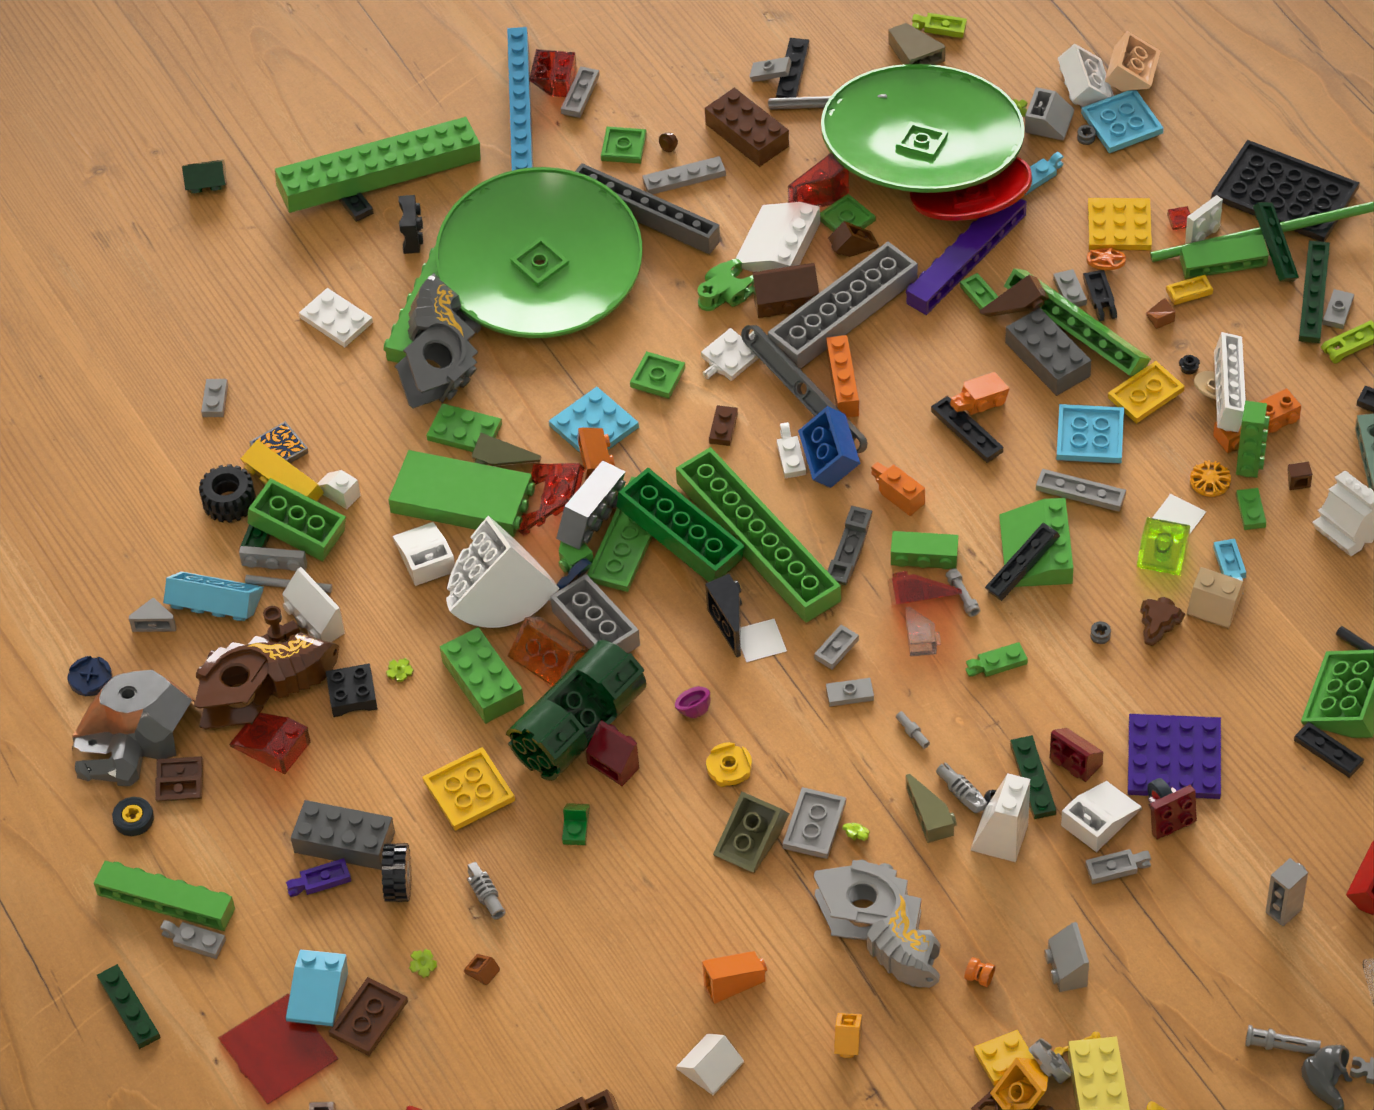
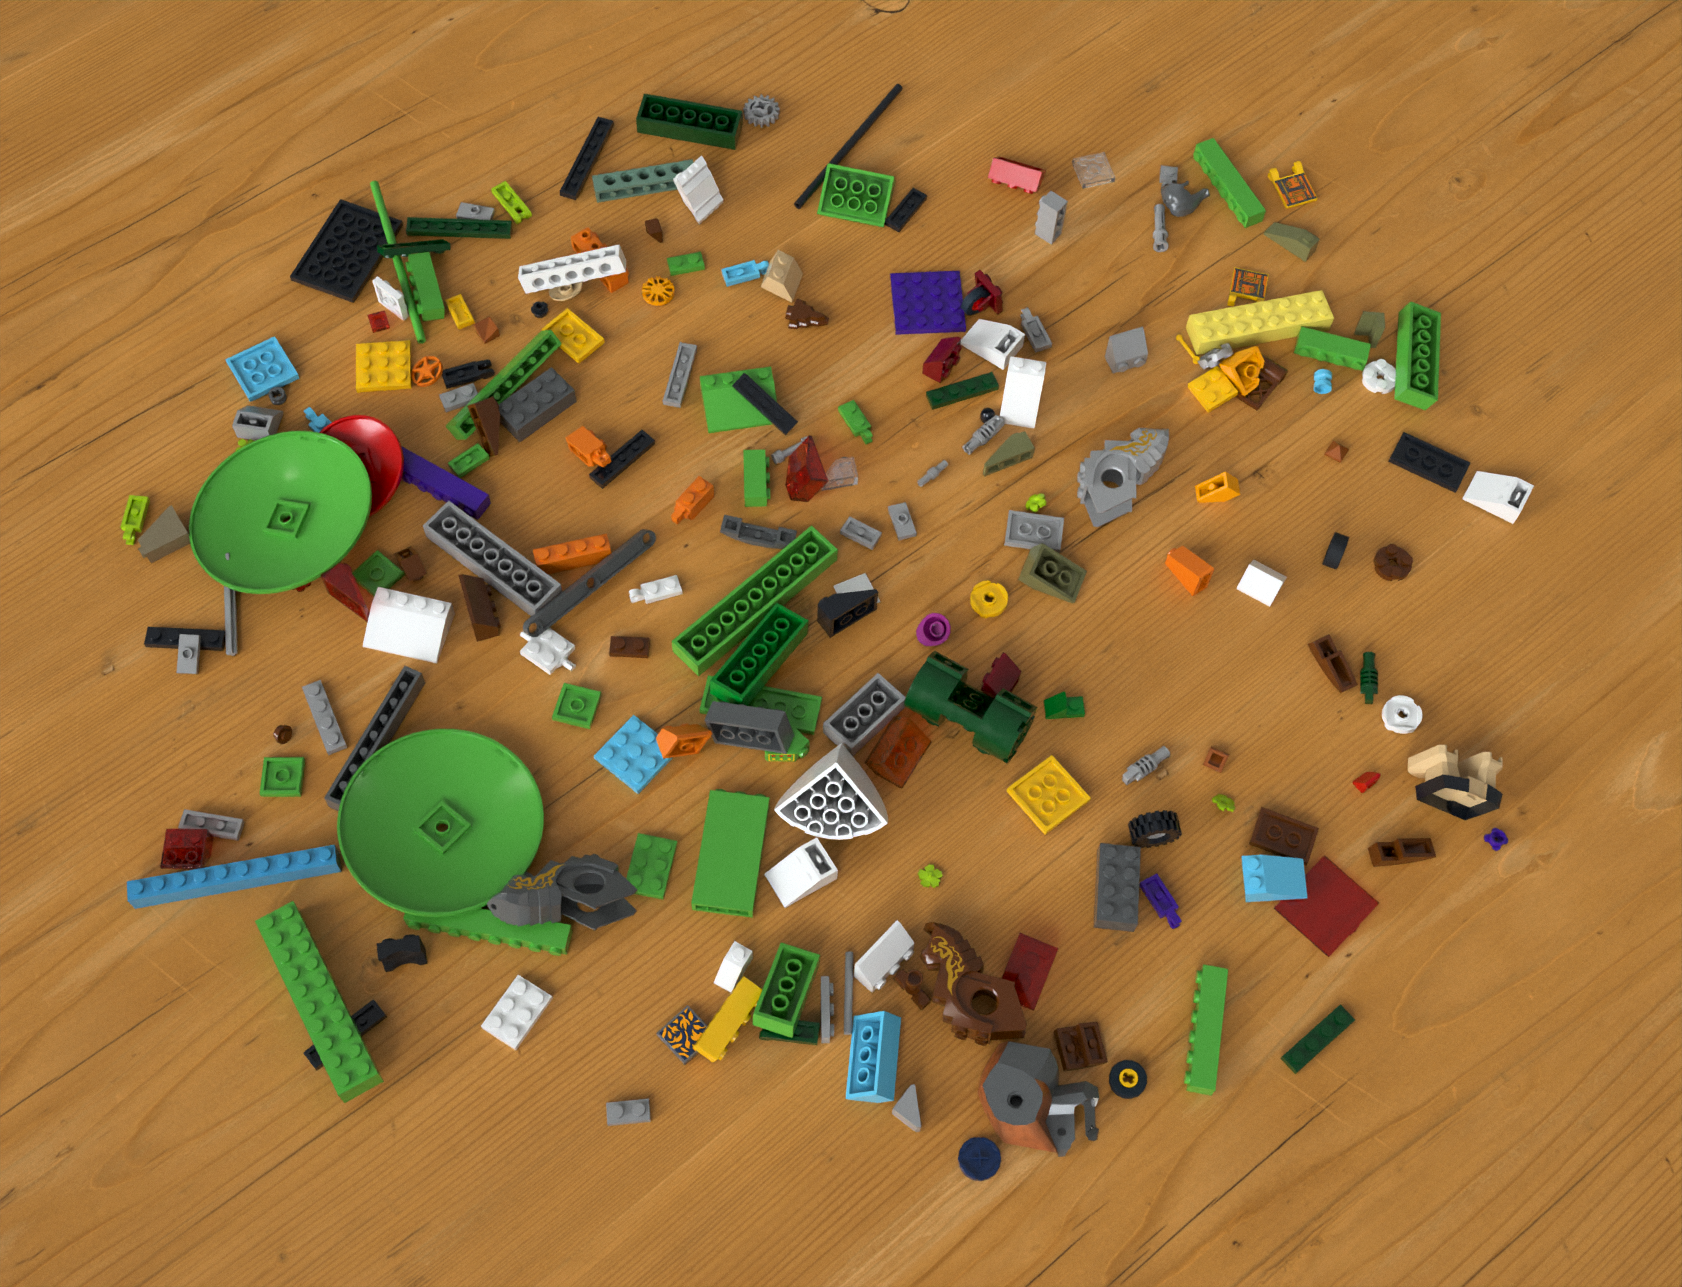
camera: 105 degrees left, 10 degrees up
(194, 938) = (1240, 995): light grey plate -> none
(204, 175) = (323, 1187): dark green slope -> none
(227, 480) = (750, 1050): black tyre -> none
(351, 689) = (963, 909): black brick -> none
(482, 675) = (932, 801): bright green brick -> none
(497, 452) = (684, 822): olive slope -> none
(561, 484) = (728, 760): clear red wing -> none
(575, 572) = (821, 736): dark blue tile -> none
(723, 286) = (468, 662): bright green piece -> none
(747, 127) = (266, 665): reddish brown brick -> none
(829, 447) = (659, 551): blue brick -> none
(979, 972) = (1146, 408): orange wheel -> none
(1084, 76) = (210, 399): white slope -> none
(1090, 433) = (620, 371): medium azure plate -> none
(1100, 626) = (817, 358): dark grey bush -> none
(1132, 64) = (198, 361): light nougat slope -> none
(1163, 546) = (733, 315): clear neon green slope -> none
(1179, 511) = (696, 312): white sticker -> none
(1251, 438) = (638, 247): bright green brick -> none

